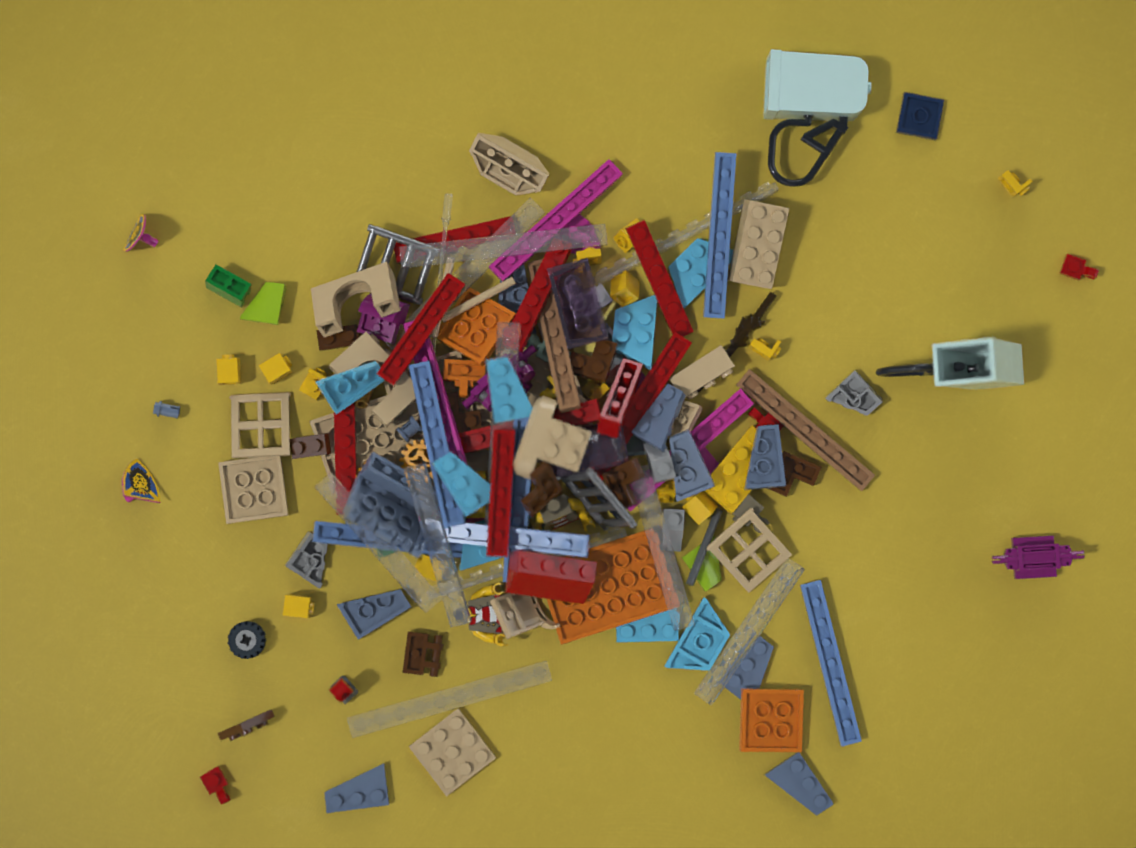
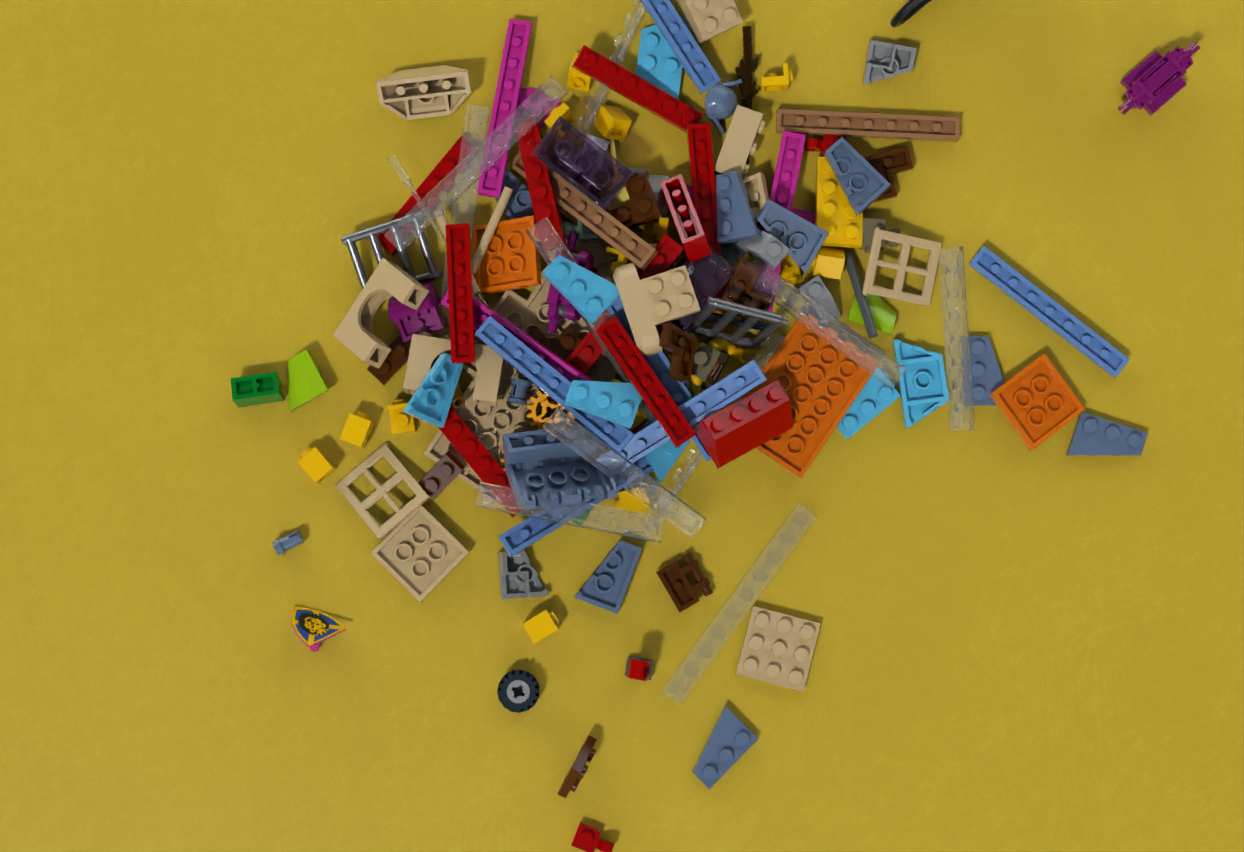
camera: 30 degrees left, 0 degrees up
(137, 234) = (139, 405): shield -> none
(463, 374) = (528, 305): orange hinge -> none
(484, 620) = (714, 502): torso -> none
(520, 614) = (744, 479): tan piece -> none
(636, 330) = (651, 151): medium azure wing -> none
(712, 334) = (721, 102): none -> sand blue piece

